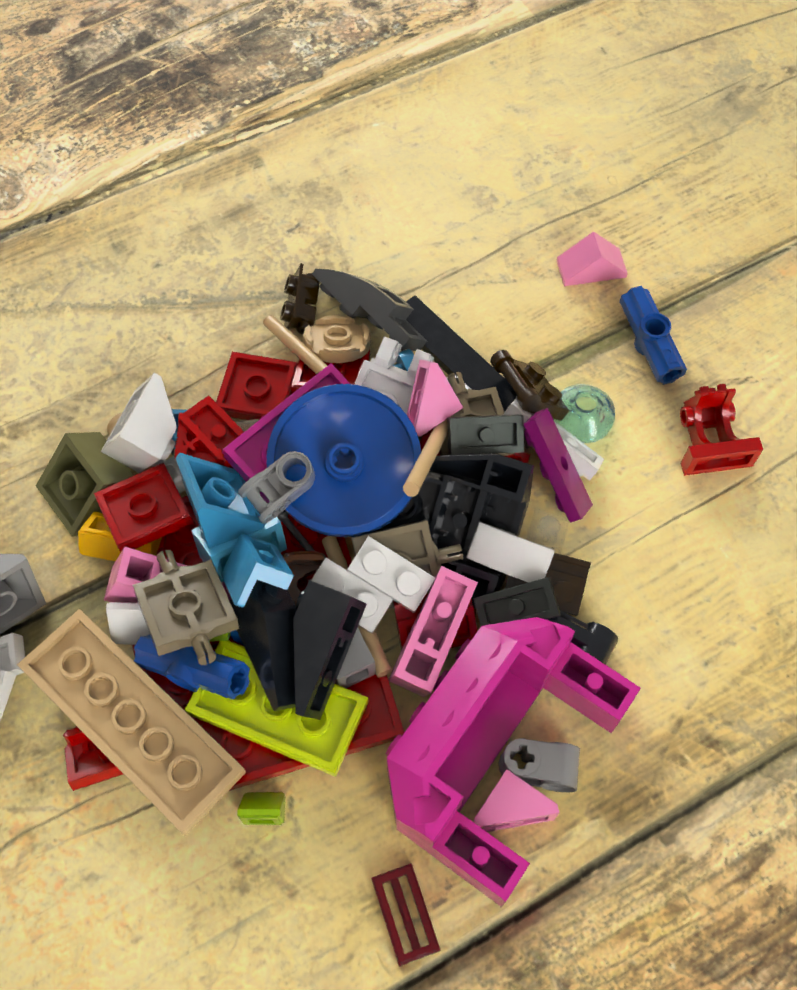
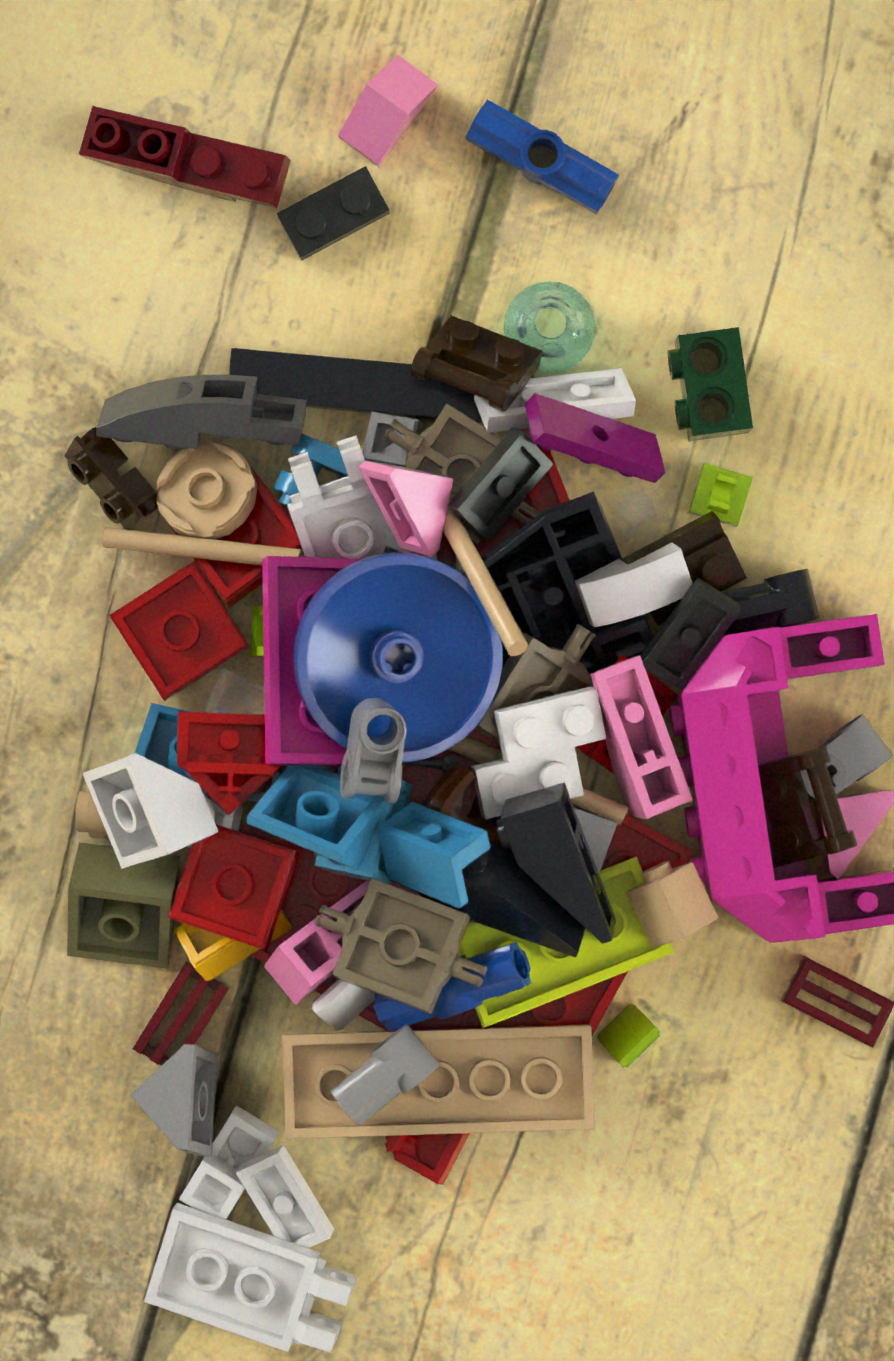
camera: 45 degrees left, 25 degrees up
(56, 556) = (158, 1055): none -> dark red tile
(111, 677) = (394, 1067): none -> light grey piece
(361, 737) = (671, 903): none -> tan brick
(473, 209) = (184, 158): none -> dark red slope
(482, 755) = (789, 814): none -> dark brown plate
(522, 284) = (333, 213): none -> pearl dark grey plate
(605, 563) = (720, 492): none -> lime tile
(652, 505) = (725, 384): none -> dark green brick
(715, 410) = (675, 207): red tile -> none

